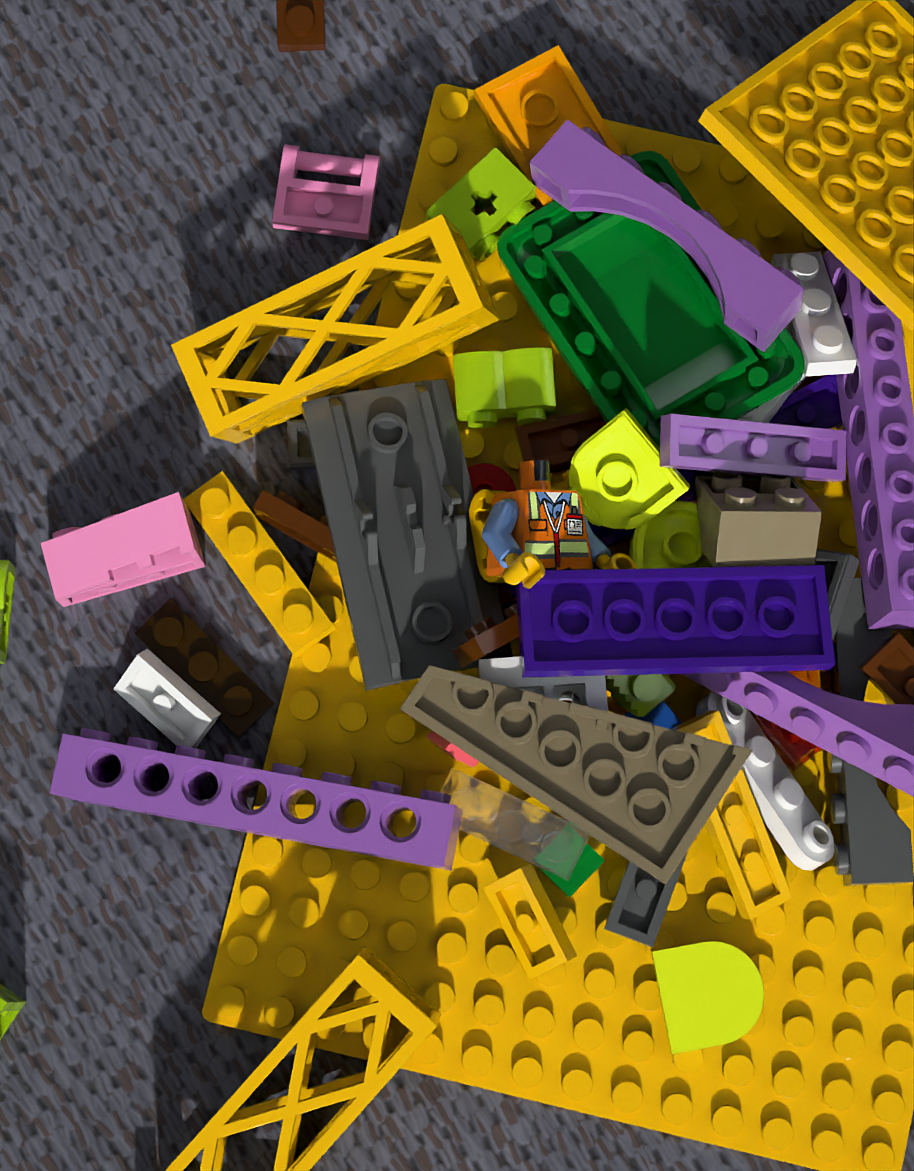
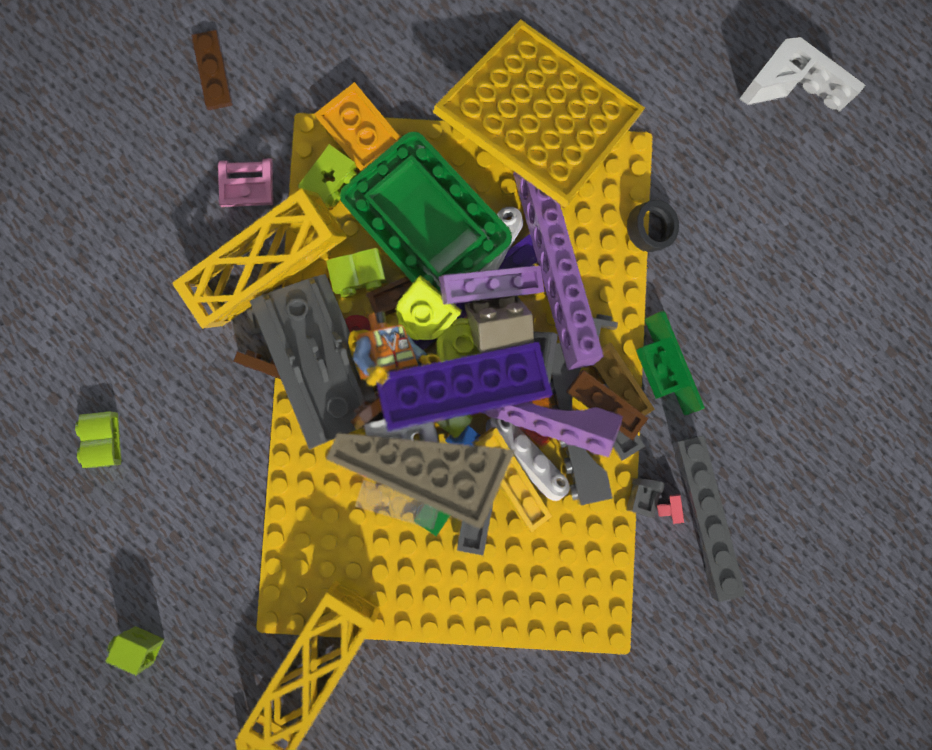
camera: 10 degrees left, 5 degrees up
(81, 778) = (170, 516): medium lavender brick -> none
(123, 551) = (171, 395): bright pink wedge -> none
(166, 700) = (208, 470): white plate -> none
(205, 668) = (226, 448): dark brown plate -> none
(259, 564) = (244, 389): yellow plate -> none
(530, 921) = (417, 553): yellow plate -> none
(590, 177) = (381, 152): medium lavender arch -> none
(707, 994) = (516, 573): neon yellow tile -> none
(819, 324) = (513, 205): white plate -> none

